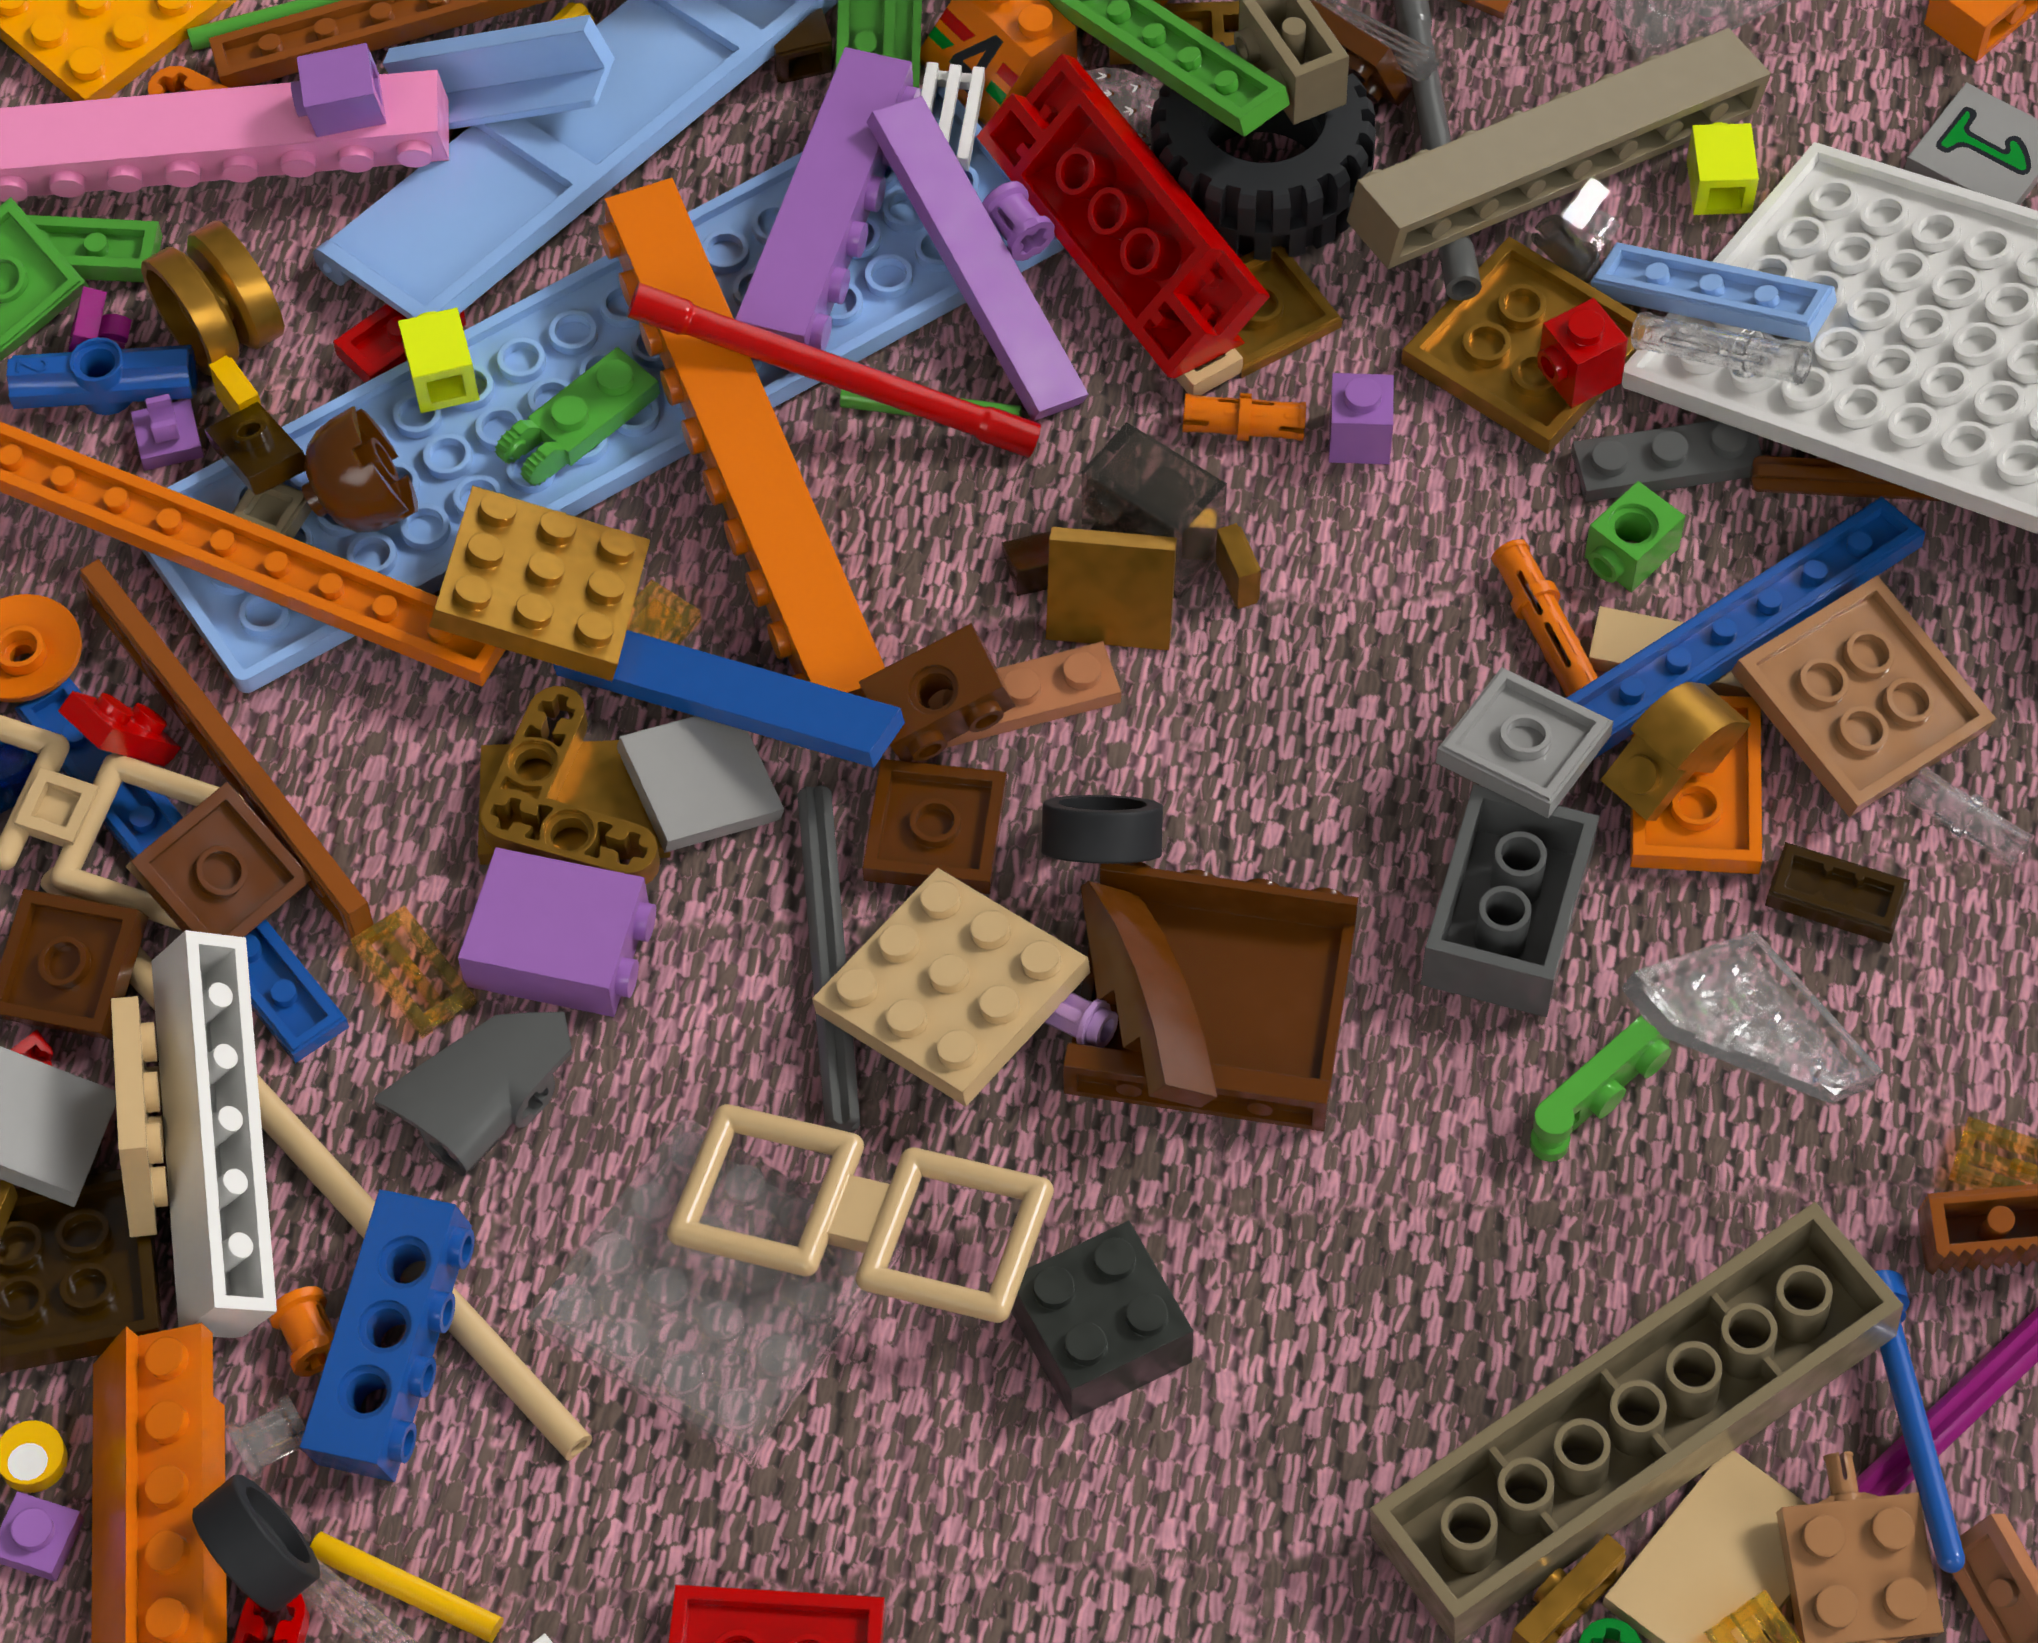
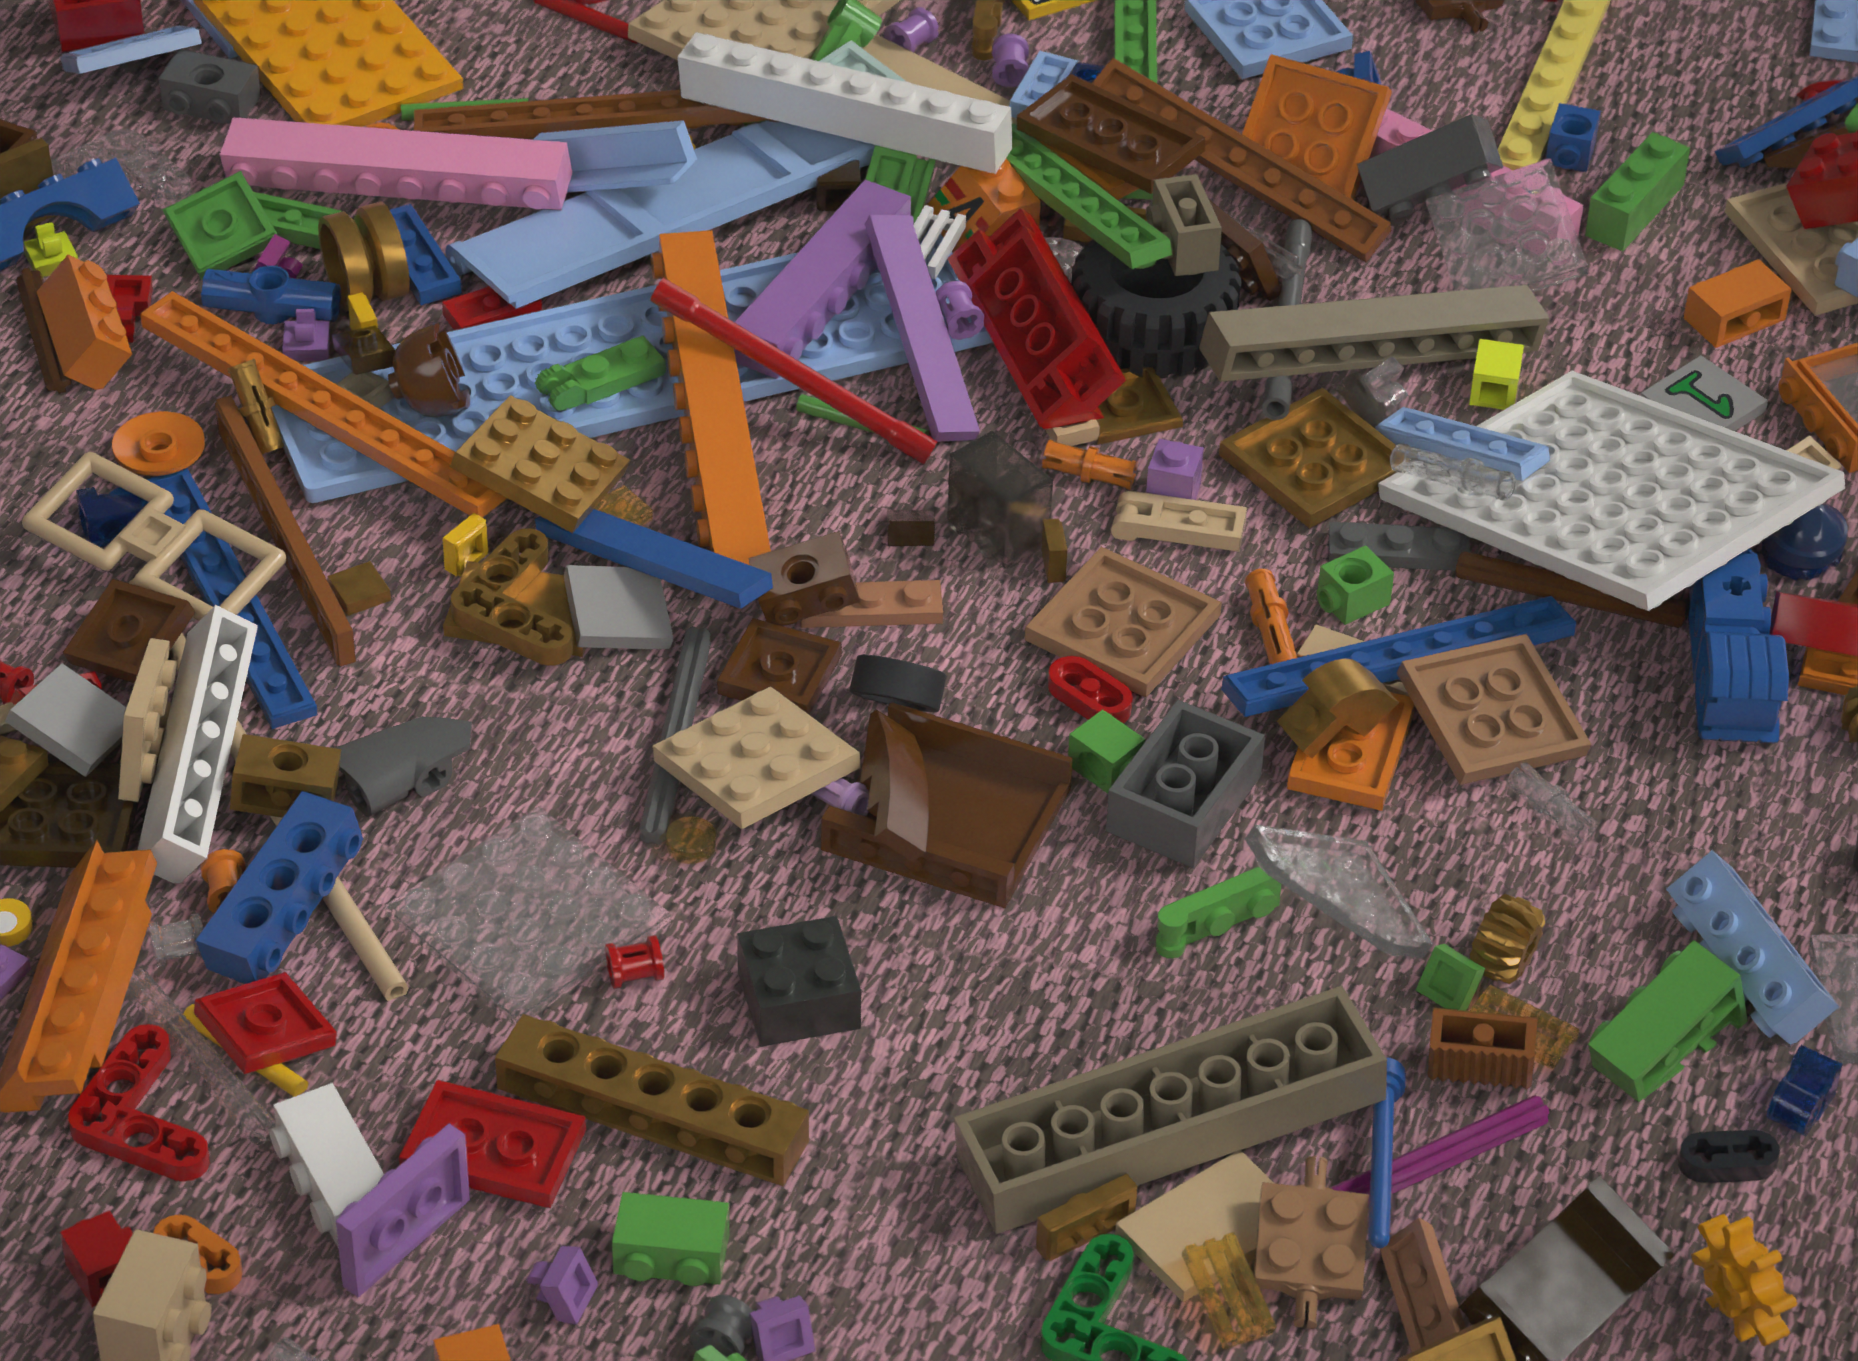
camera: 10 degrees right, 15 degrees down
(119, 728) = (205, 488): red plate -> none
(137, 569) = (256, 406): none -> pearl gold pin
(219, 868) = (256, 585): reddish brown plate -> none
(256, 1543) = (144, 981): black tyre -> none
(301, 290) = (429, 269): none -> blue plate
(321, 1184) = (275, 772): none -> pearl gold brick
(339, 90) = (492, 139): medium lavender brick -> none
(349, 816) = (359, 588): none -> pearl gold tile
(422, 1542) = (265, 1022): none -> red tile
(438, 360) = (511, 319): neon yellow brick -> none
(440, 1009) = (383, 712): clear yellow tile -> none
(473, 723) = (465, 544): none -> yellow tile
(556, 932) = (483, 678): medium lavender brick -> none
(861, 1213) = (644, 876): tan bar -> none
(894, 1119) = (691, 840): none -> clear yellow tile
(899, 1333) = (634, 961): none -> red bush
(988, 1574) = (653, 1099): none -> pearl gold brick
(1110, 588) = (953, 540): pearl gold tile -> none
(1345, 774) = (1093, 691): none -> red plate
(1354, 655) = (1124, 620): none -> medium nougat plate
(1382, 481) = (1179, 520): none -> tan plate
(1394, 869) = (1103, 749): none -> bright green brick
(1524, 742) = (1224, 680): light grey tile -> none
(1582, 352) = (1348, 458): red brick -> none
(1837, 893) = (1436, 830): dark brown plate -> none
(1920, 1123) = (1450, 978): none -> bright green tile
(1980, 1052) = (1507, 938): none -> pearl gold gear

